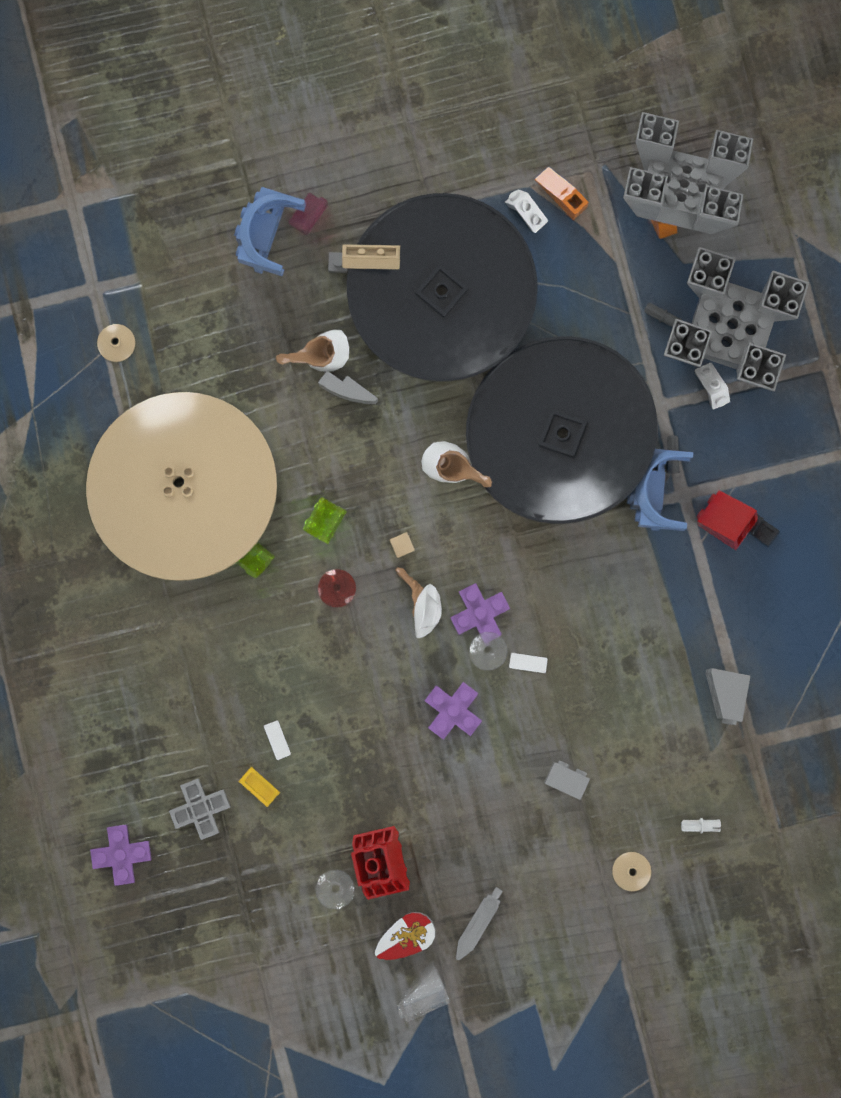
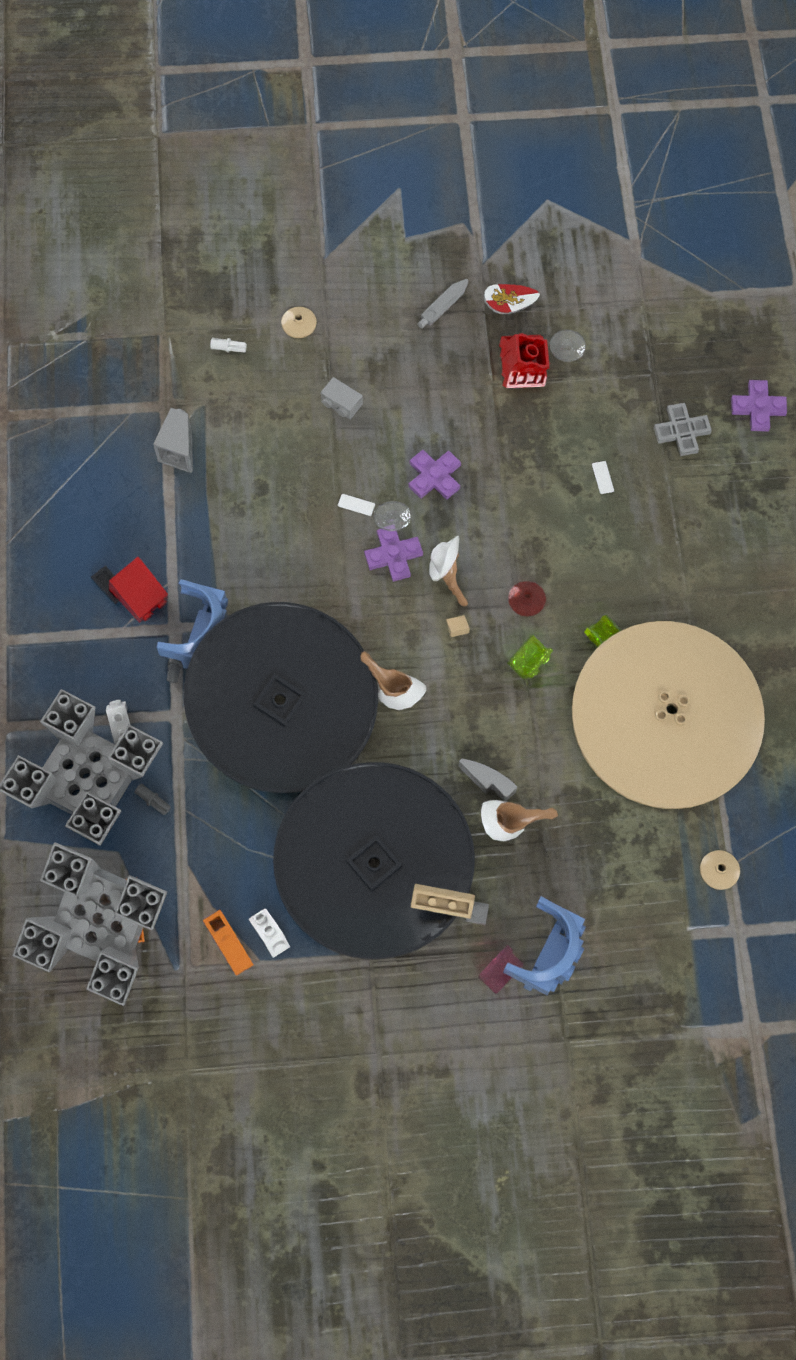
camera: 170 degrees left, 15 degrees down
(259, 786) = (624, 440): yellow tile -> none
(423, 995) = (502, 250): clear slope -> none

